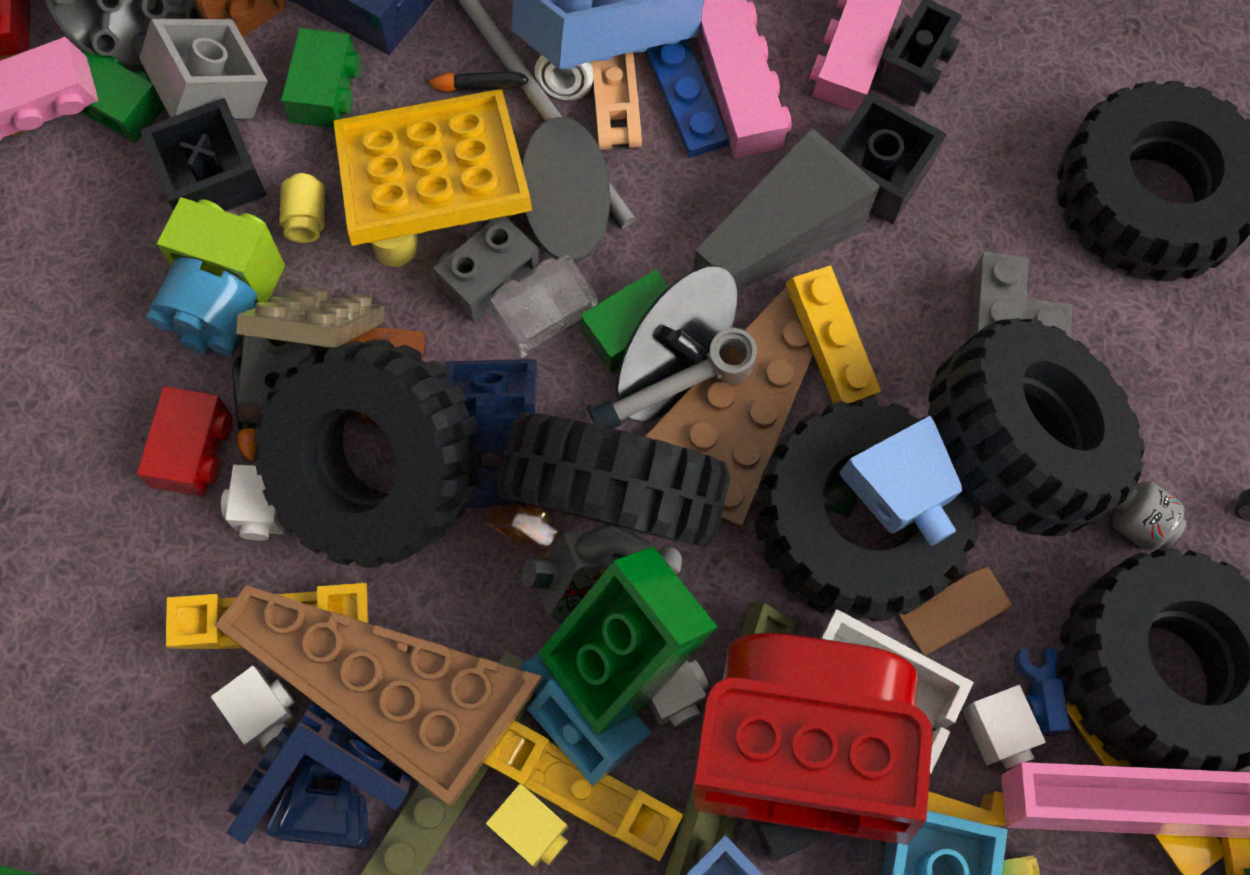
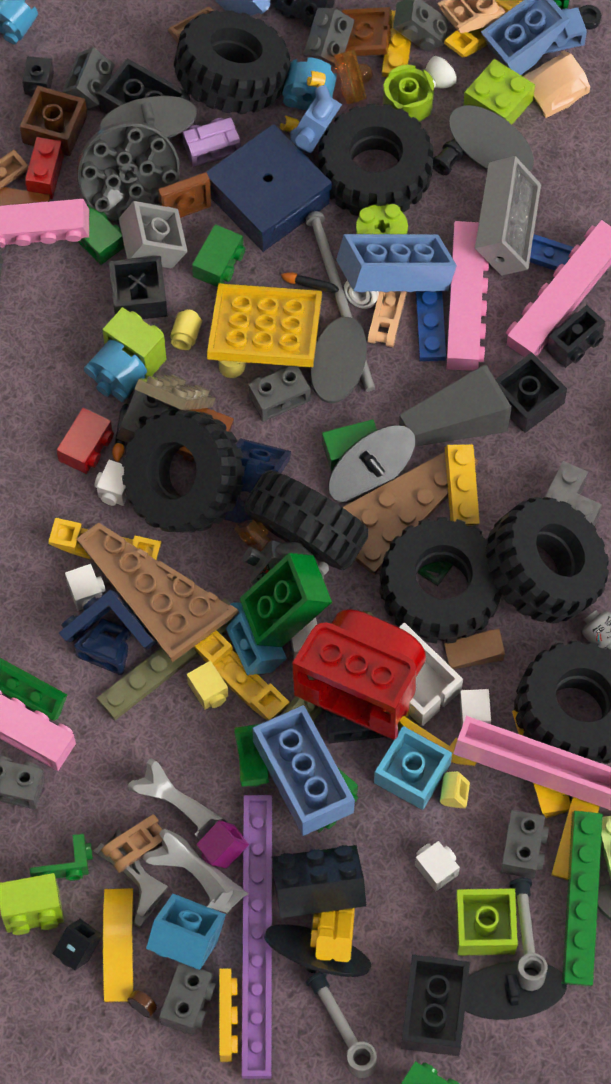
camera: 20 degrees right, 5 degrees down
(542, 304) = (303, 421): clear brick -> none
(713, 366) = (392, 470): light grey piece -> none
(907, 481) = (461, 564): light blue torso -> none
(1046, 692) = (503, 709): blue plate -> none

